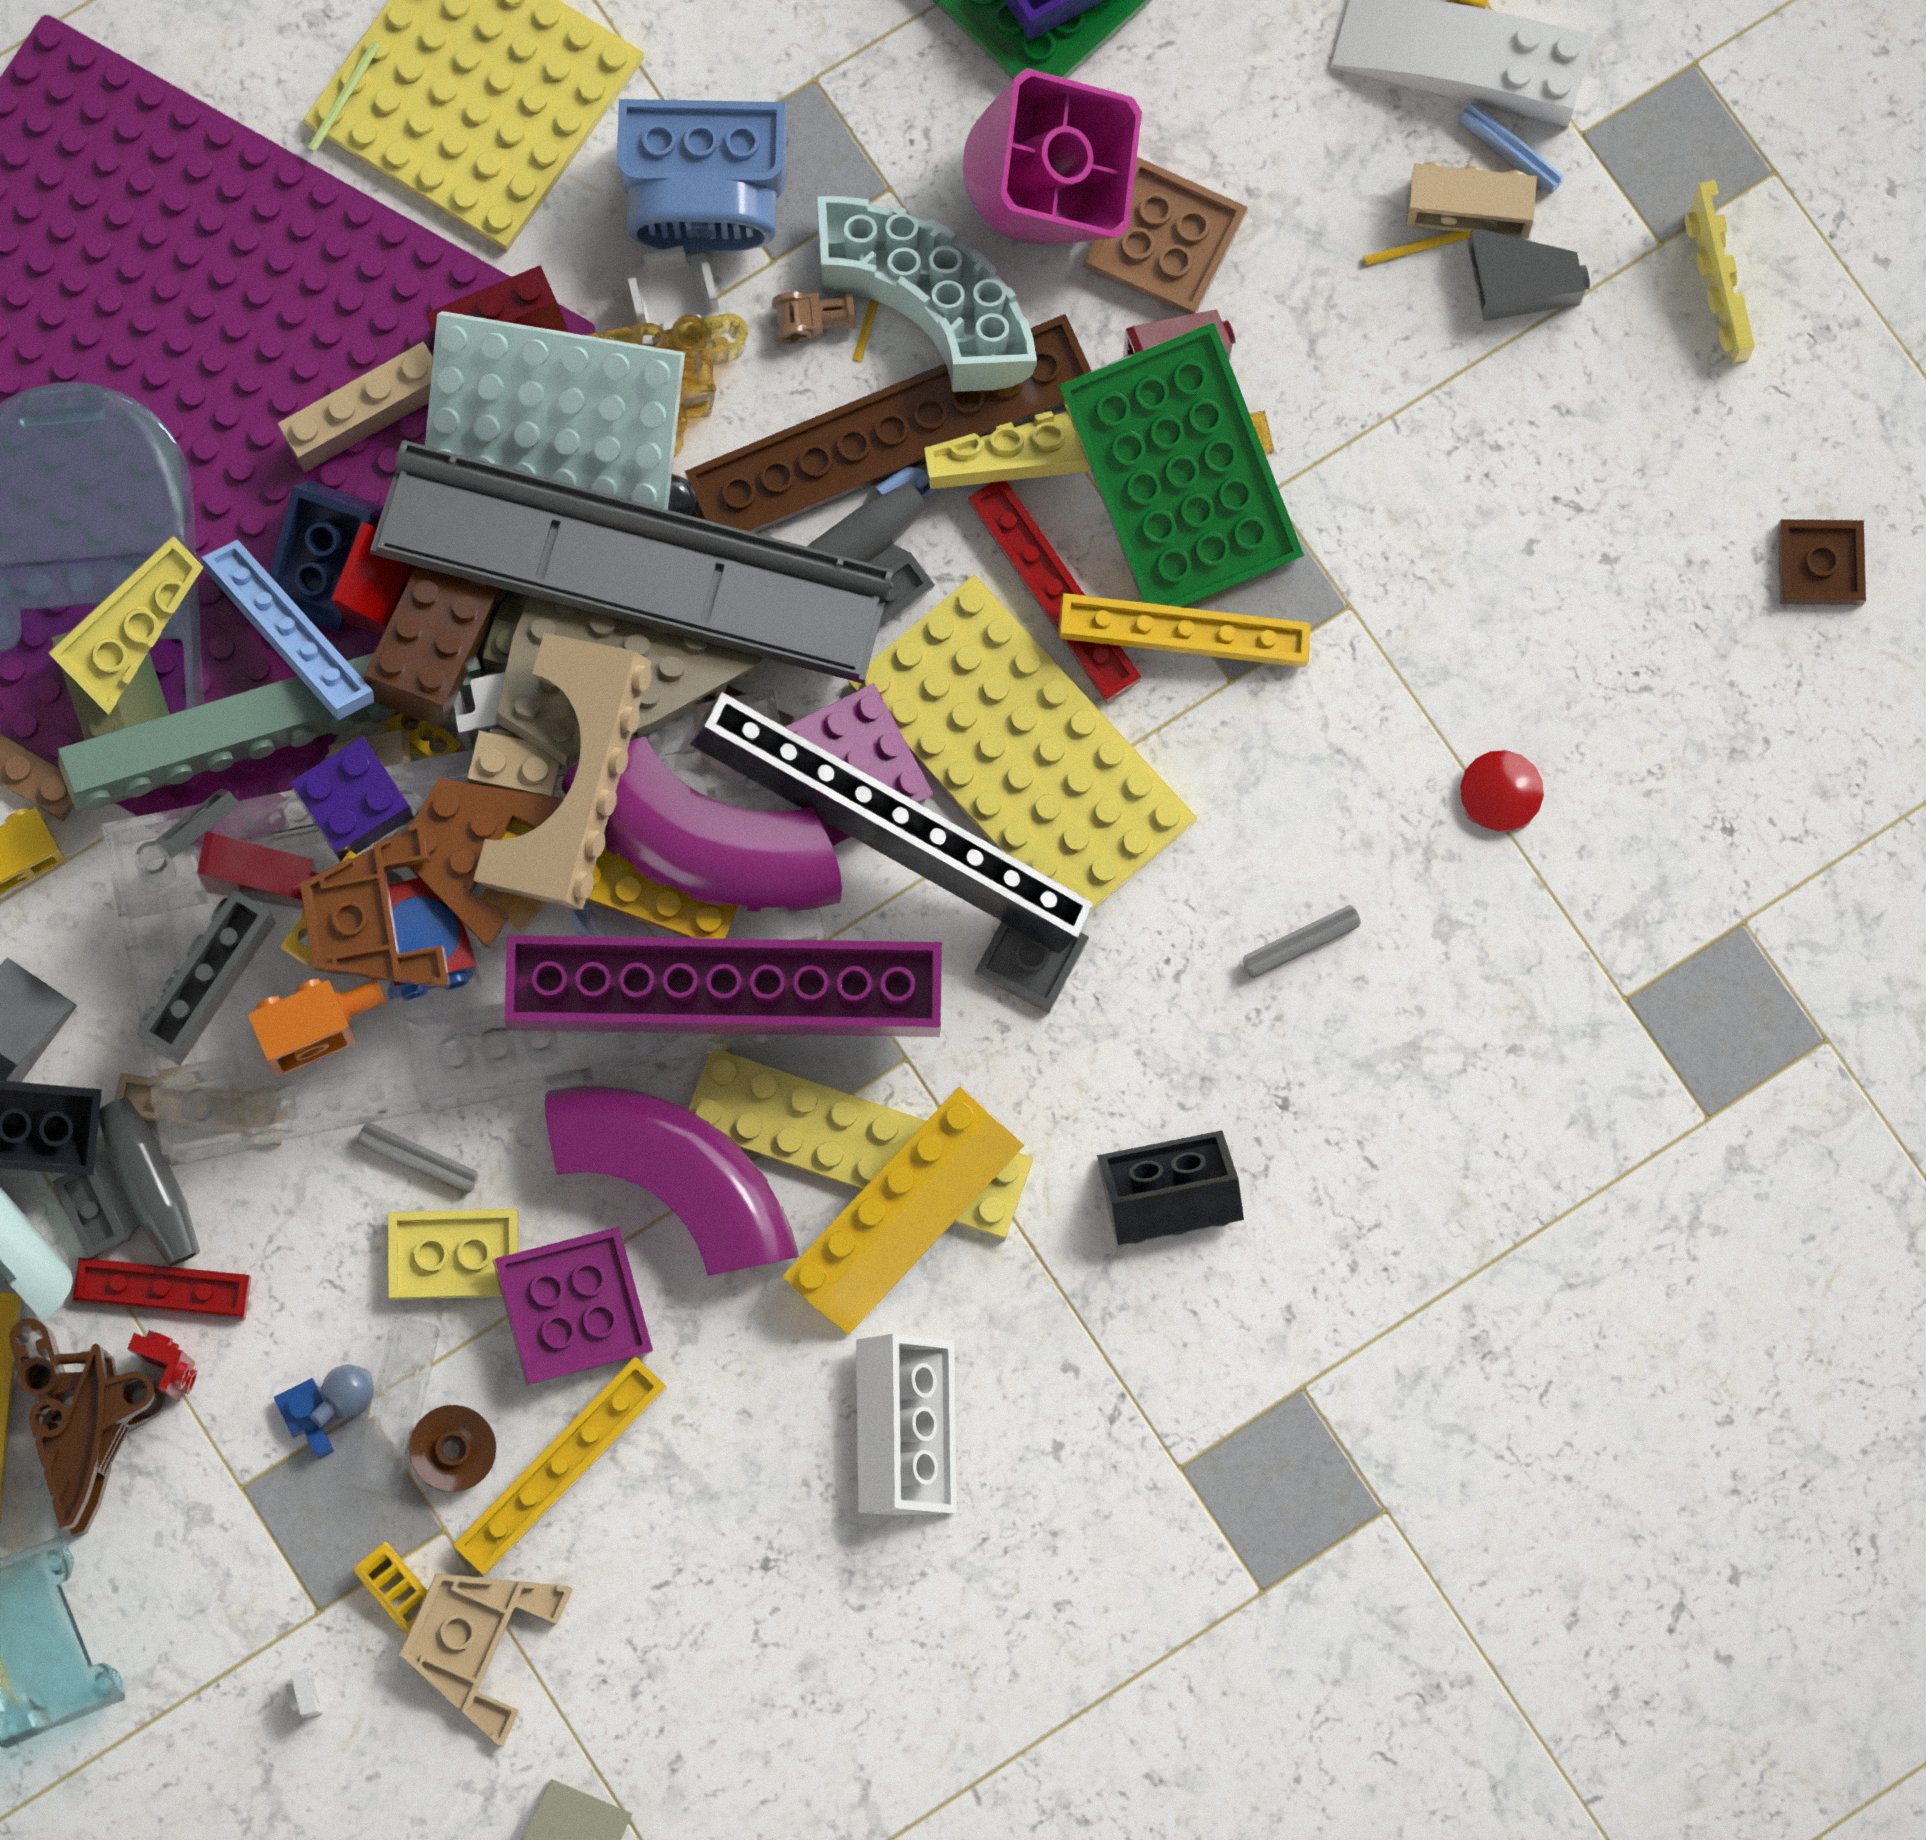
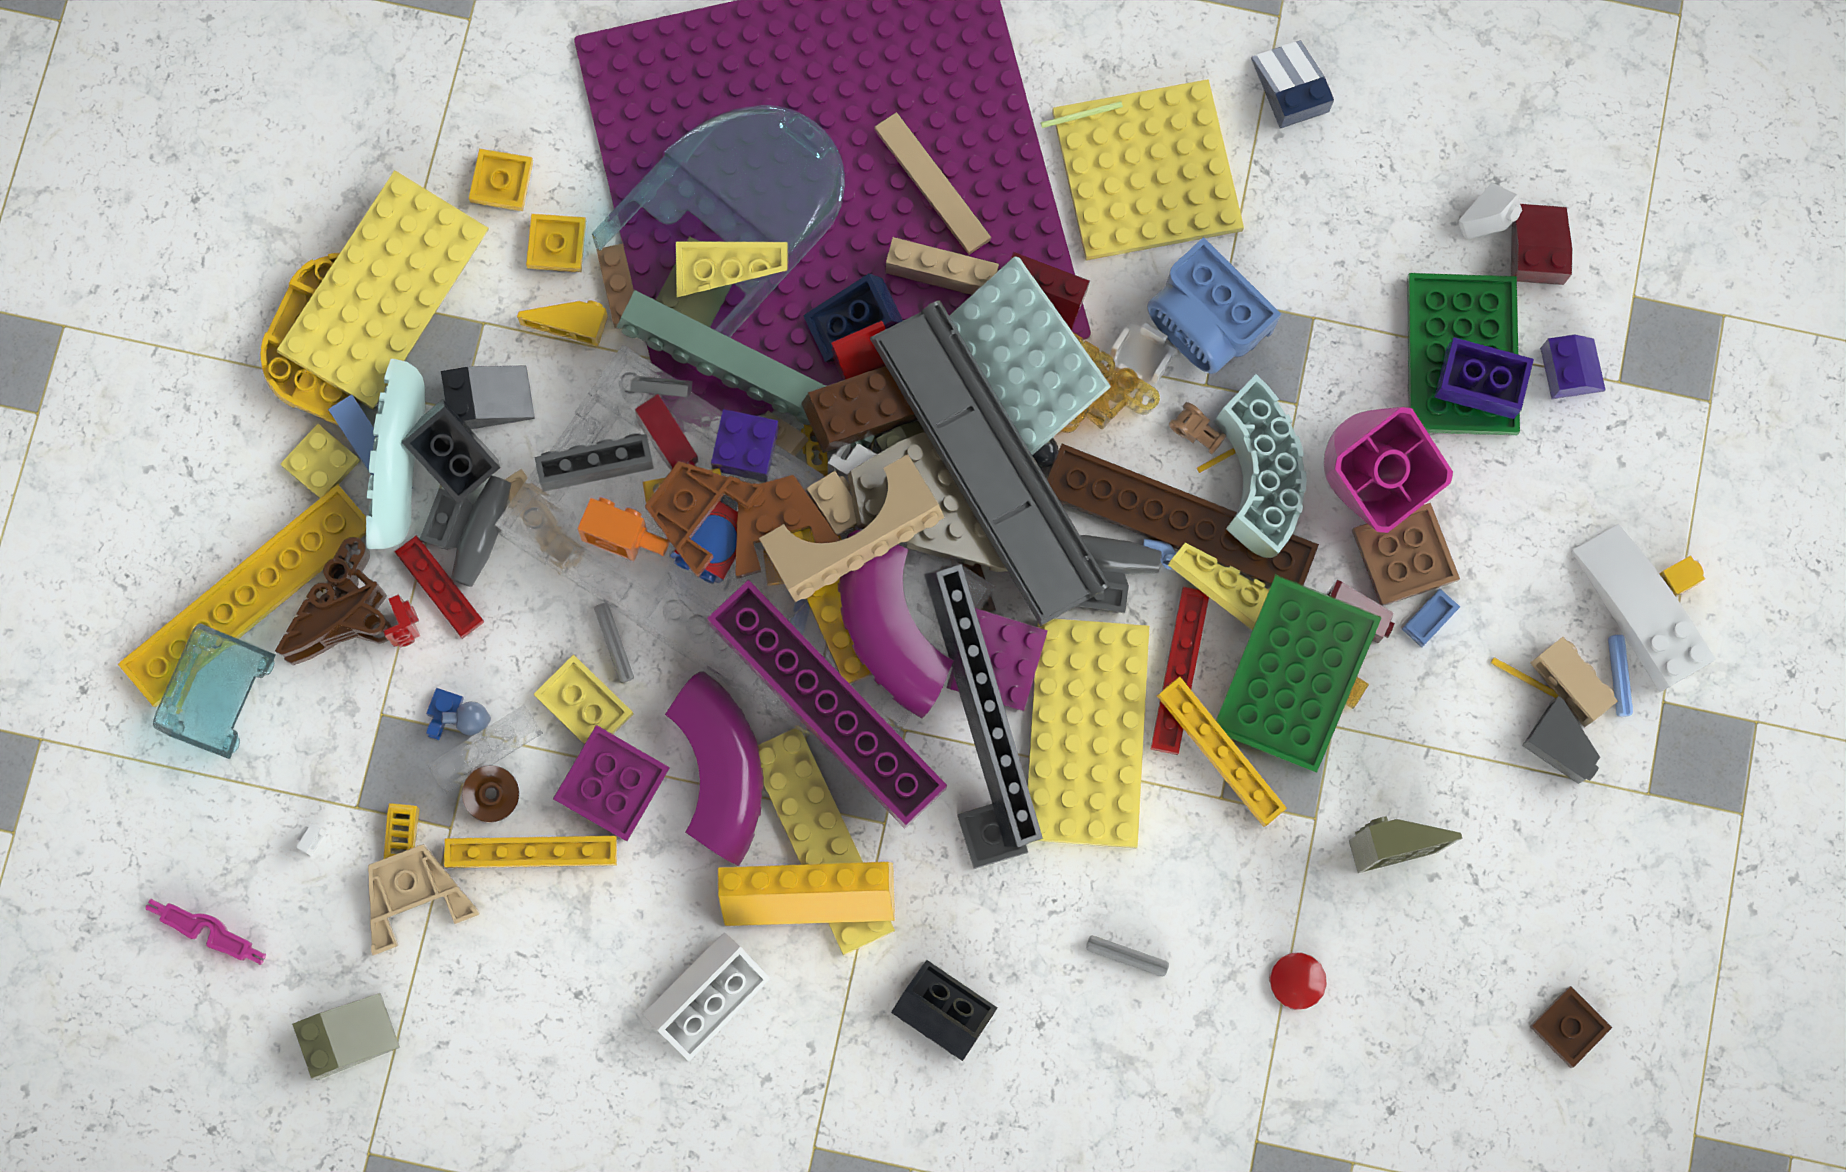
camera: 40 degrees right, 0 degrees up
(256, 326) = (932, 183): none -> tan tile
(288, 630) = (799, 338): light blue plate -> none
(1257, 278) = (1430, 617): none -> medium blue tile
(1460, 541) = (1397, 841): none -> olive slope
(1720, 271) = (1678, 811): light yellow wing -> none

